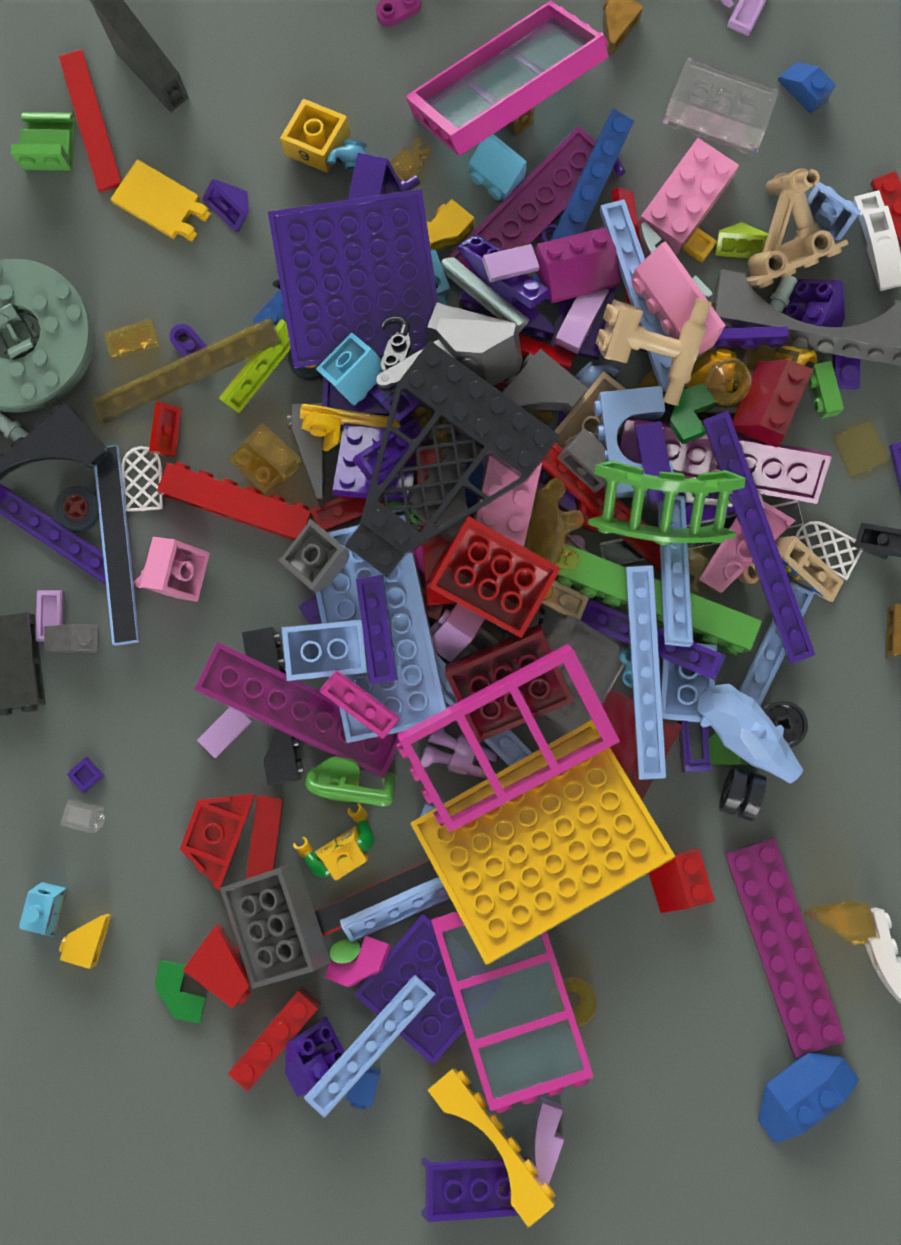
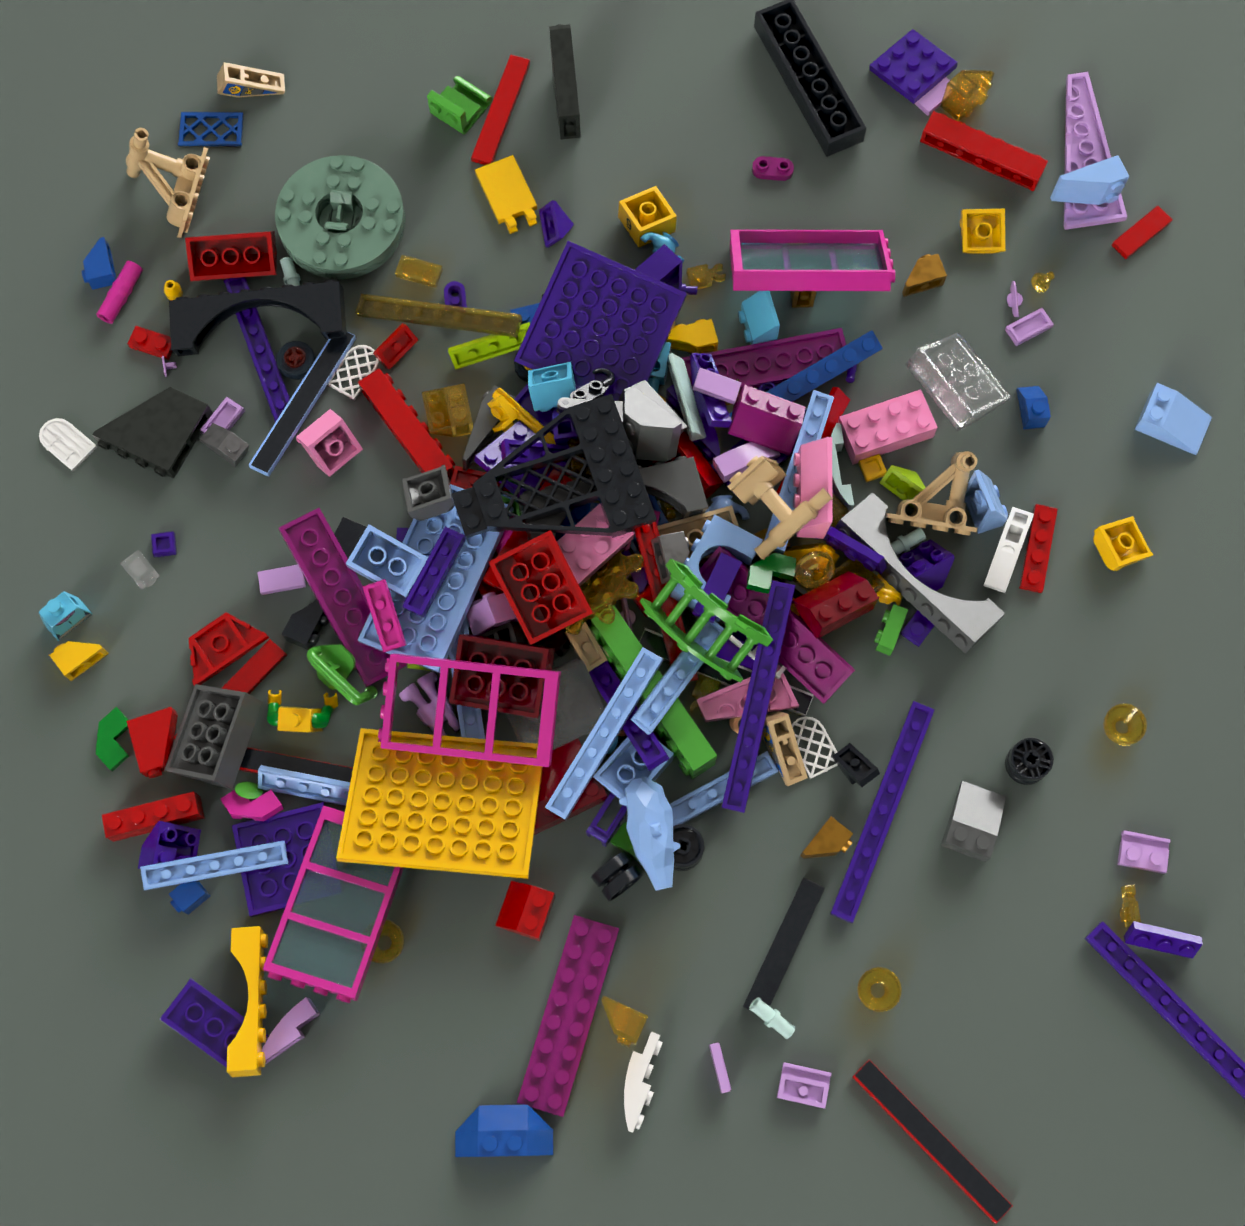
camera: 30 degrees right, 10 degrees down
(860, 448) = (890, 691): clear yellow piece -> none

